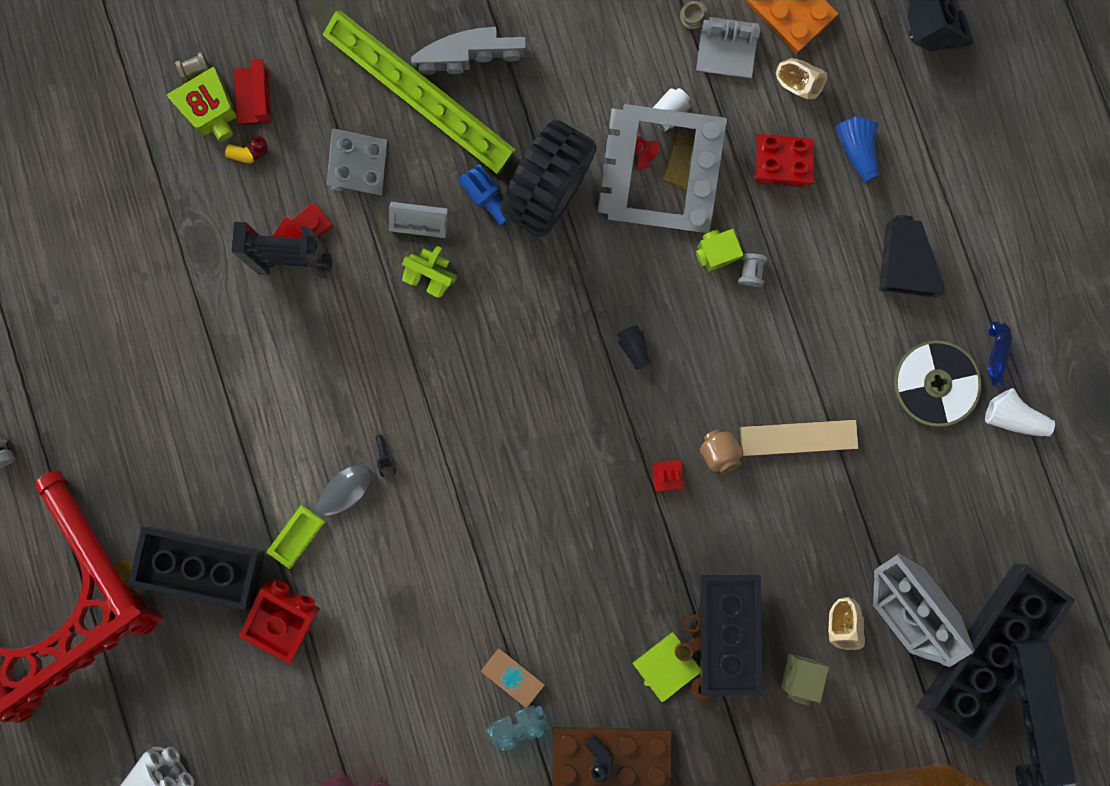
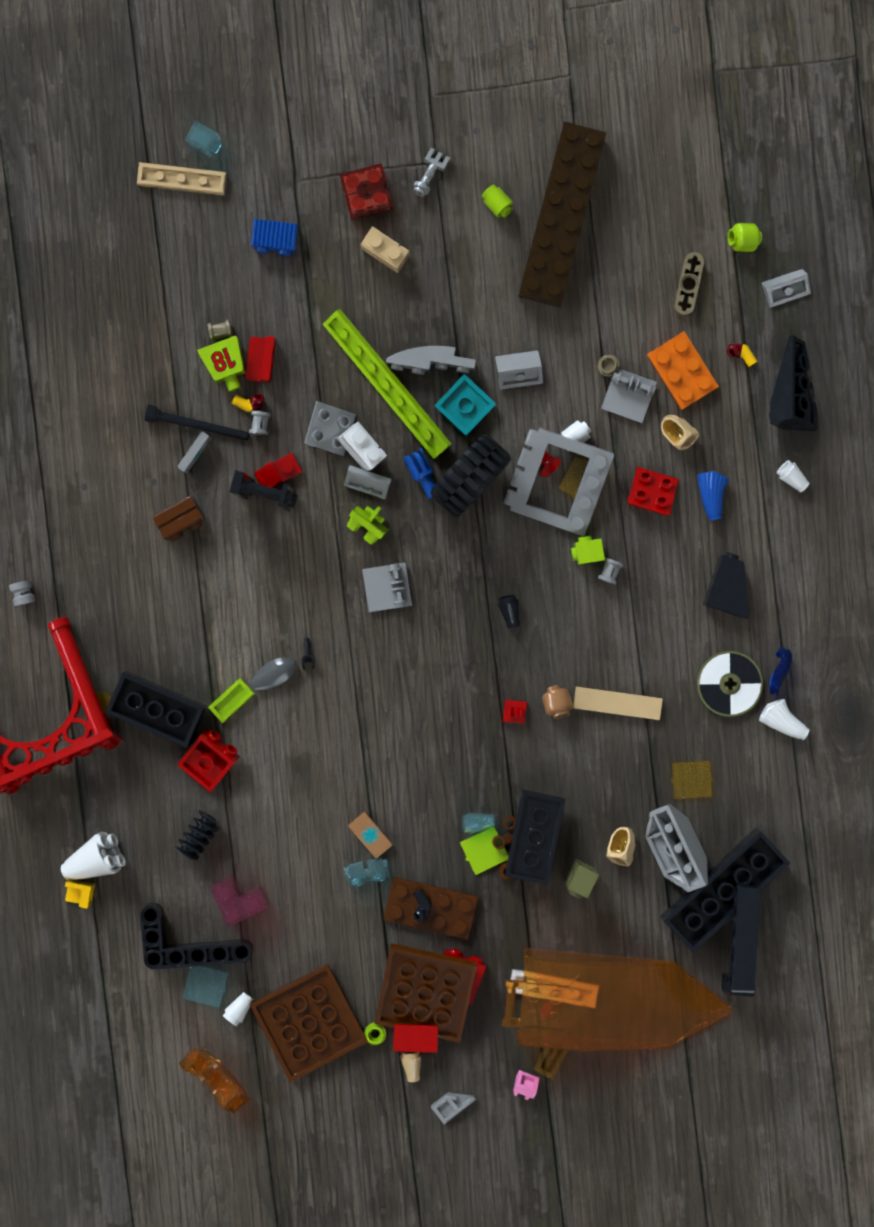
camera: 20 degrees right, 5 degrees up
(127, 189) = (154, 414): none -> black piece
(183, 314) = (179, 518): none -> reddish brown brick
(188, 226) = (194, 452): none -> light grey tile
(265, 172) = (259, 423): none -> light grey bush
(284, 726) = (198, 836): none -> black piece
(401, 174) = (361, 446): none -> white brick
(470, 349) = (387, 587): none -> light grey hinge
(523, 99) = (465, 405): none -> teal plate
(583, 43) = (519, 369): none -> light grey panel
(649, 631) = (477, 822): none -> clear light blue cone
(916, 518) = (691, 779): none -> clear yellow piece
(956, 104) = (793, 476): none -> white cone

